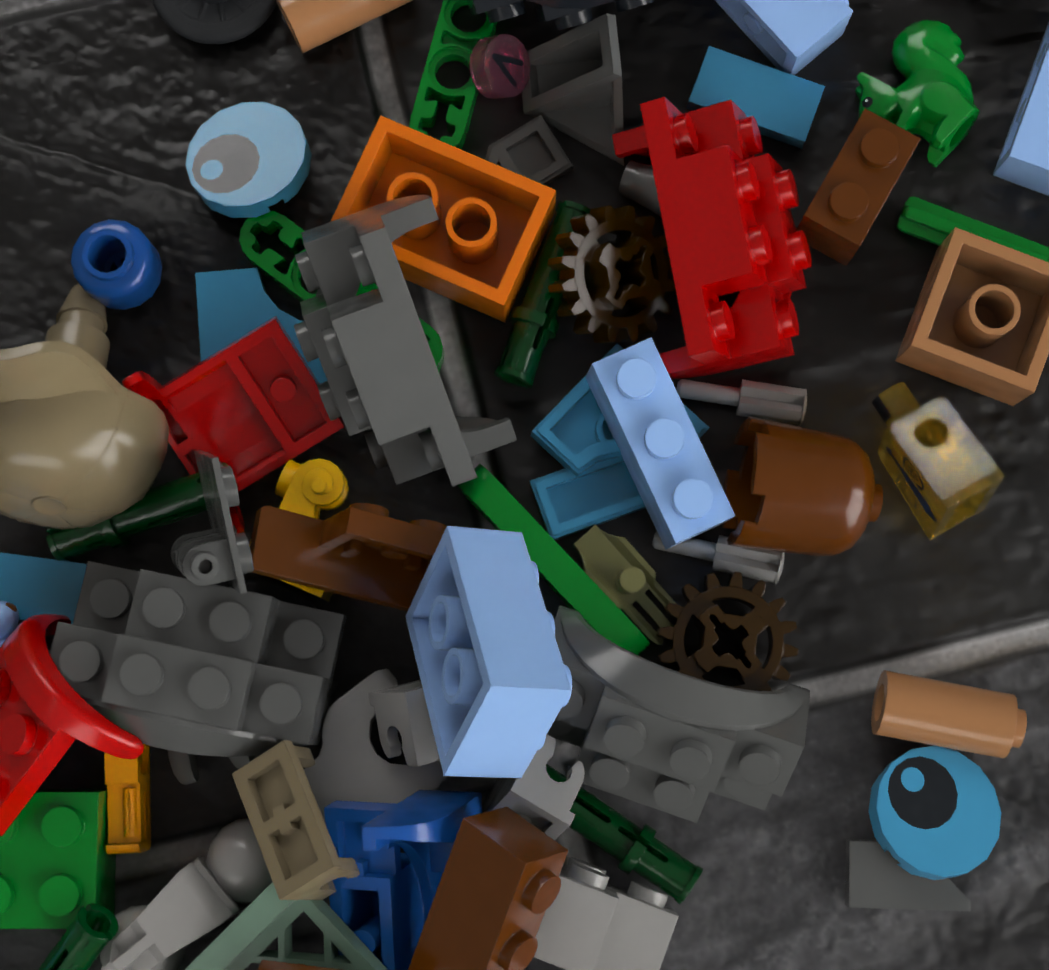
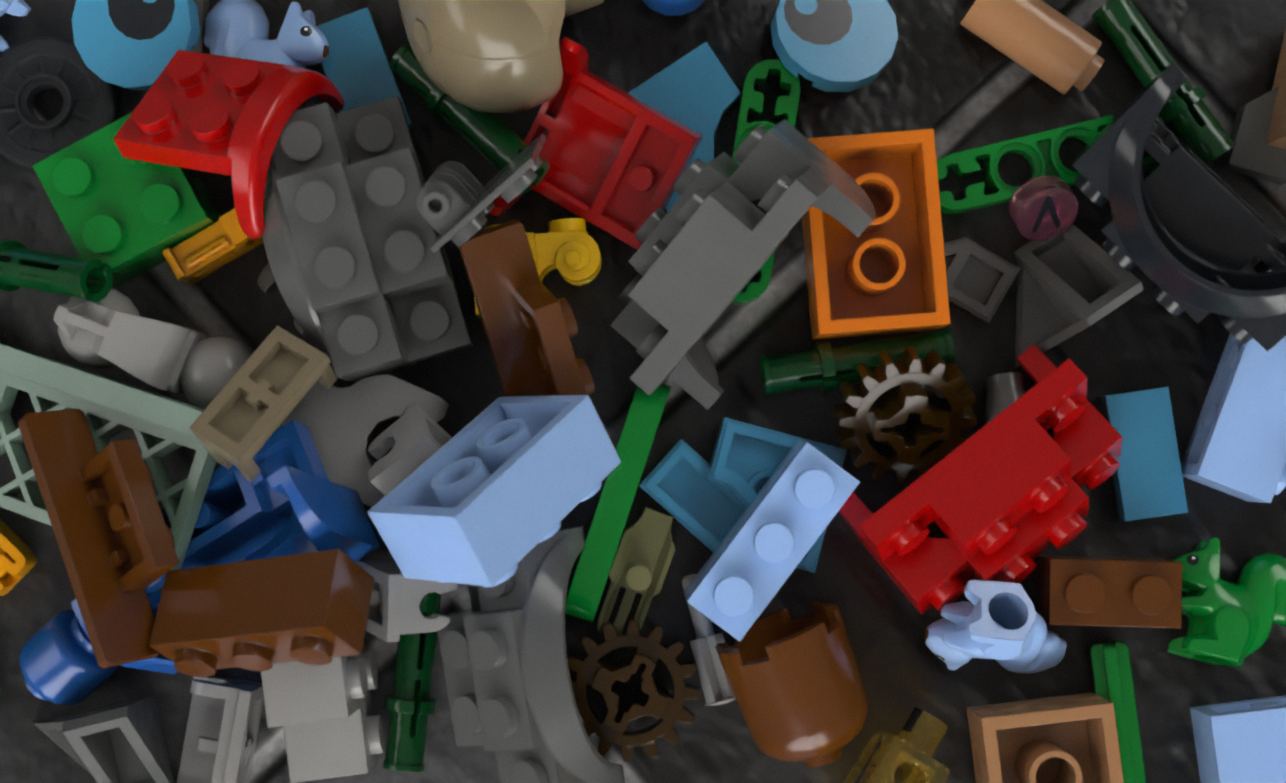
camera: 65 degrees right, 5 degrees up
(752, 399) = (861, 596): light grey axle -> none
(840, 290) = (997, 626): none -> light blue animal

